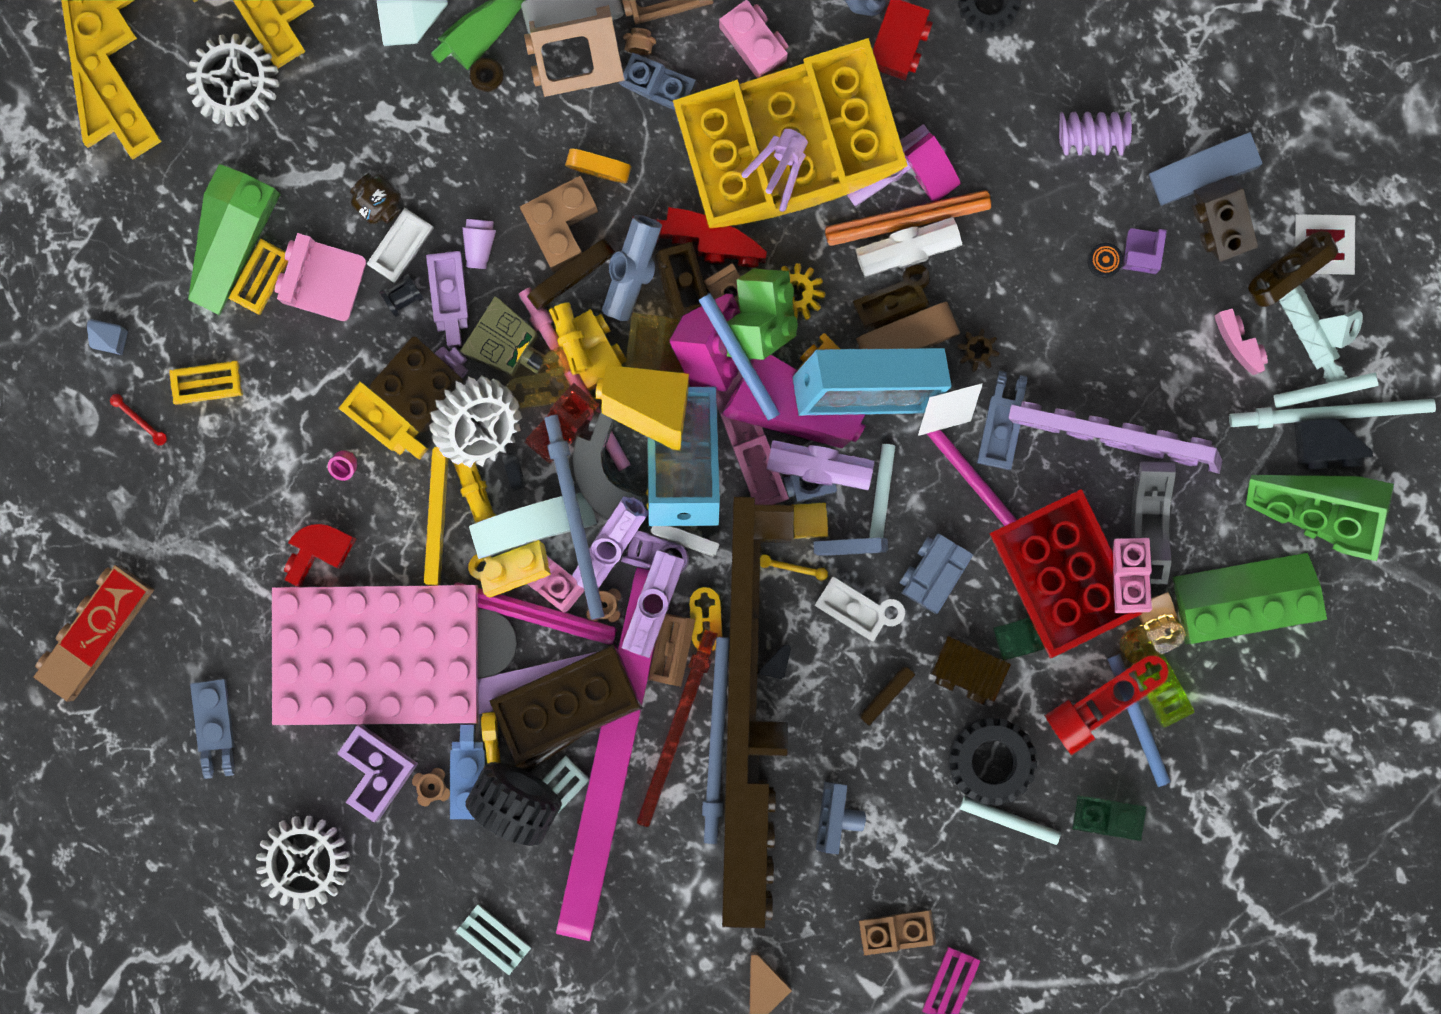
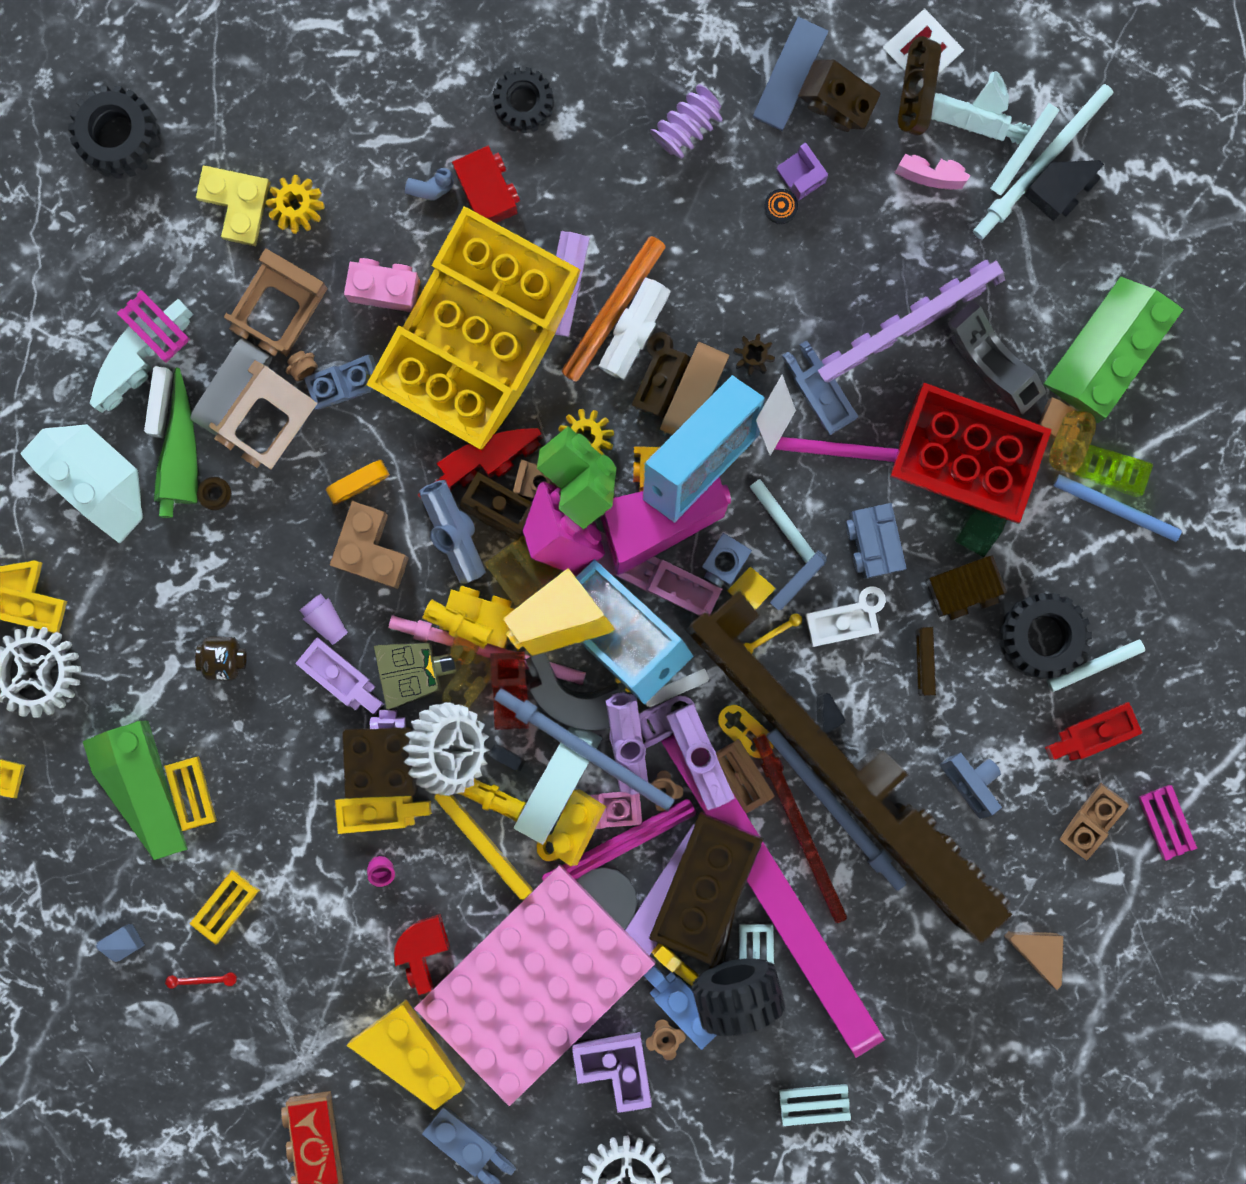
camera: 50 degrees left, 0 degrees up
(236, 618) = (409, 1055): none -> yellow wedge
(320, 278) = (235, 753): bright pink bracket -> none
(400, 245) = (270, 674): white tile -> none
(401, 295) = (305, 709): black bush -> none
(571, 274) = (412, 578): dark brown beam -> none
(739, 356) = (592, 521): medium blue bar -> none
(789, 151) = (485, 341): lavender plant -> none
(820, 465) = (723, 543): lavender piece -> none
(932, 167) = (597, 256): dark pink slope -> none
(961, 869) = (1096, 733): none -> red hinge
(1077, 722) = (1079, 550): red beam -> none
(1109, 817) = (1166, 595): clear green slope -> none
(1132, 575) = (1019, 410): bright pink slope -> none
(1339, 509) = (1115, 224): bright green wedge -> none

